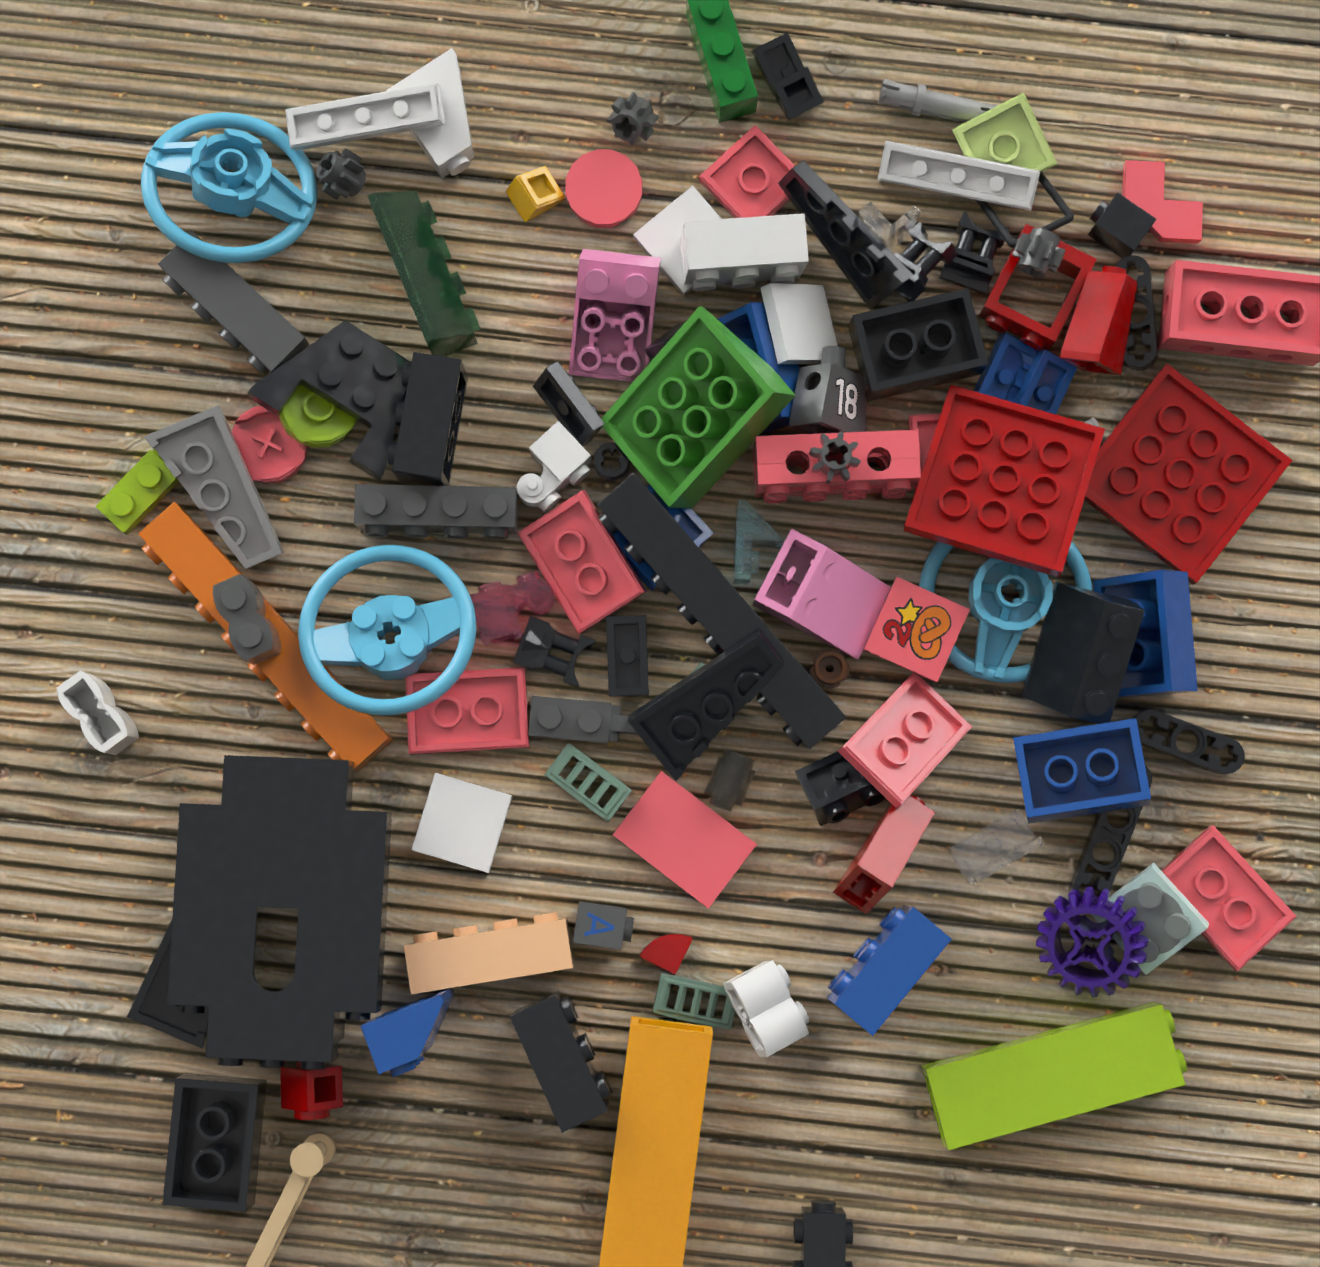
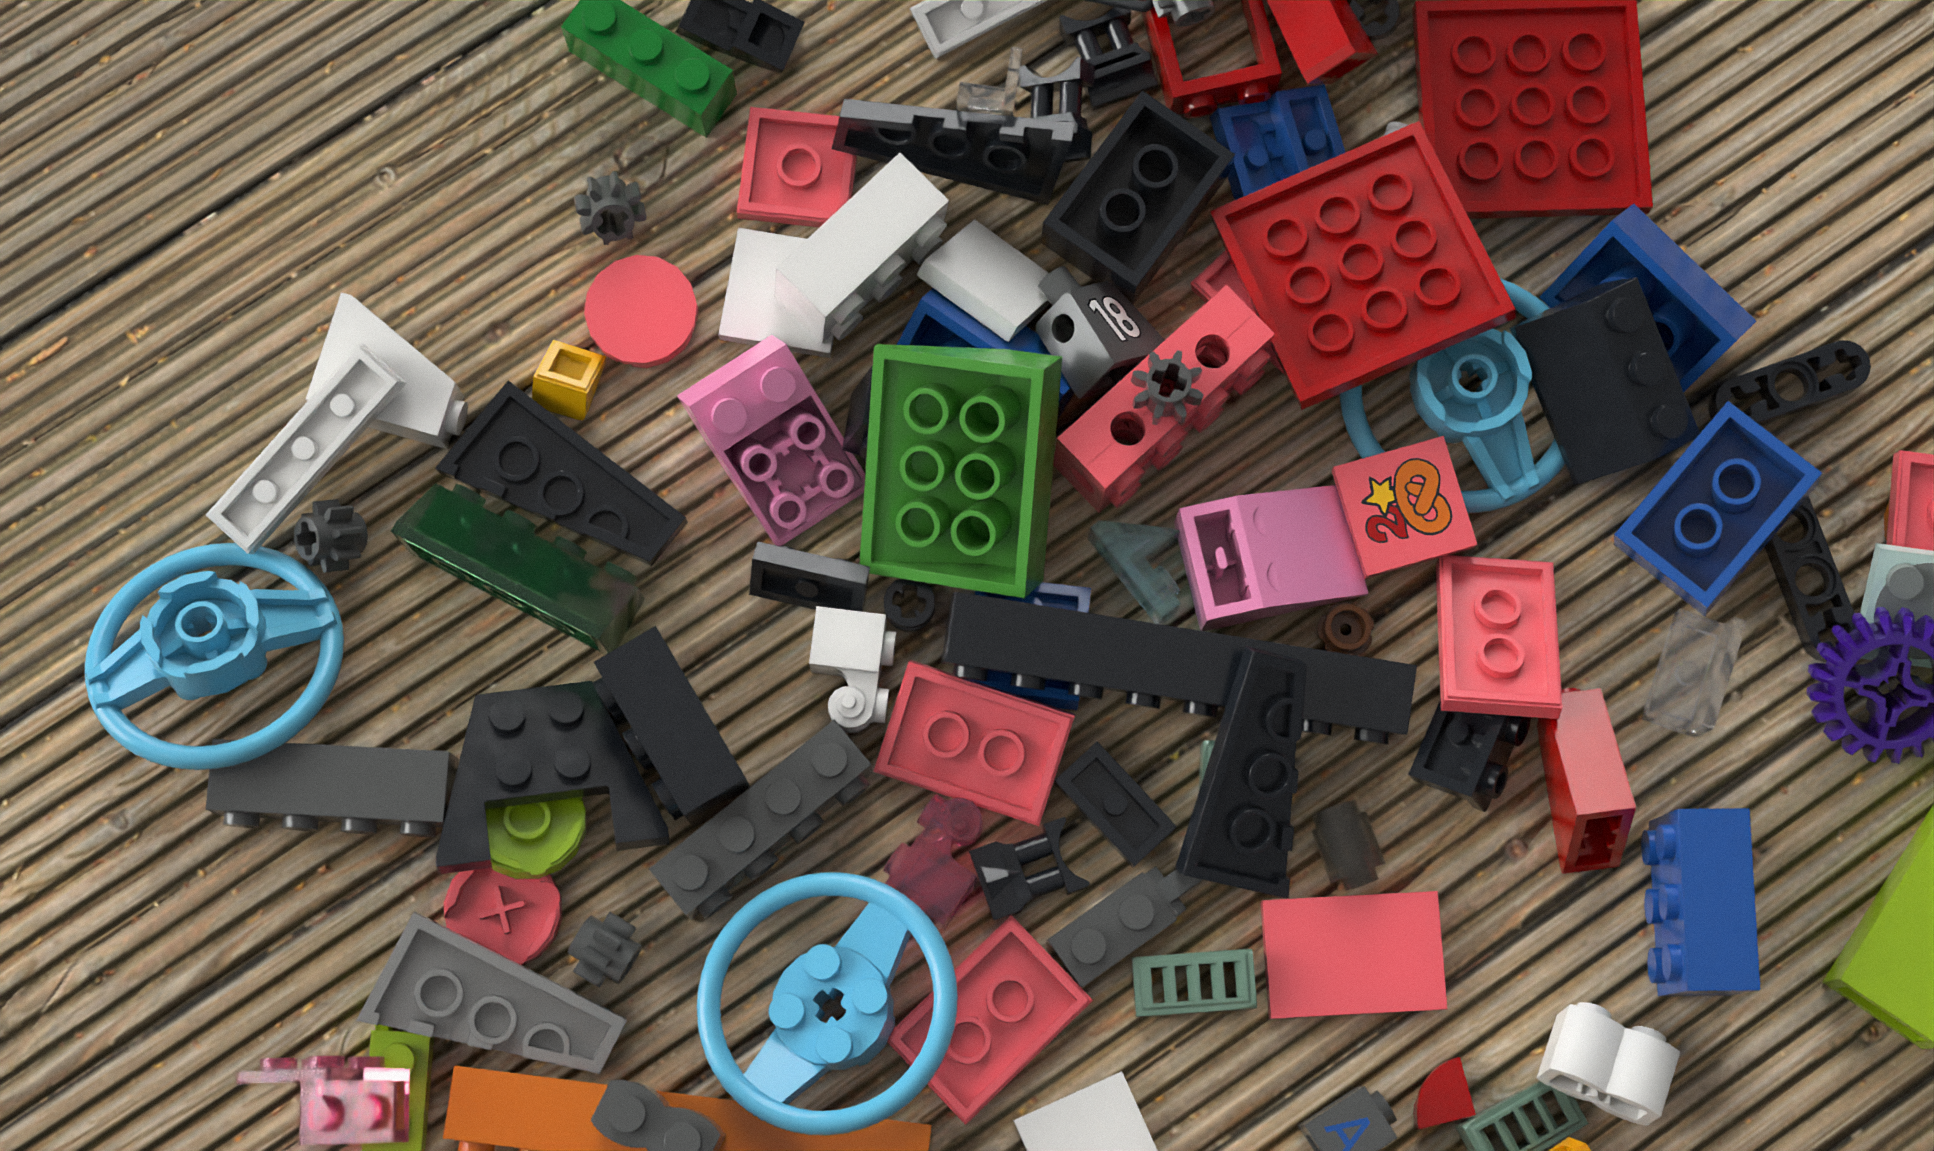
camera: 40 degrees left, 5 degrees down
(103, 475) = (342, 1103): none -> clear pink bracket
(300, 507) = (604, 949): none -> dark grey gear
(483, 233) = (552, 472): none -> black wing

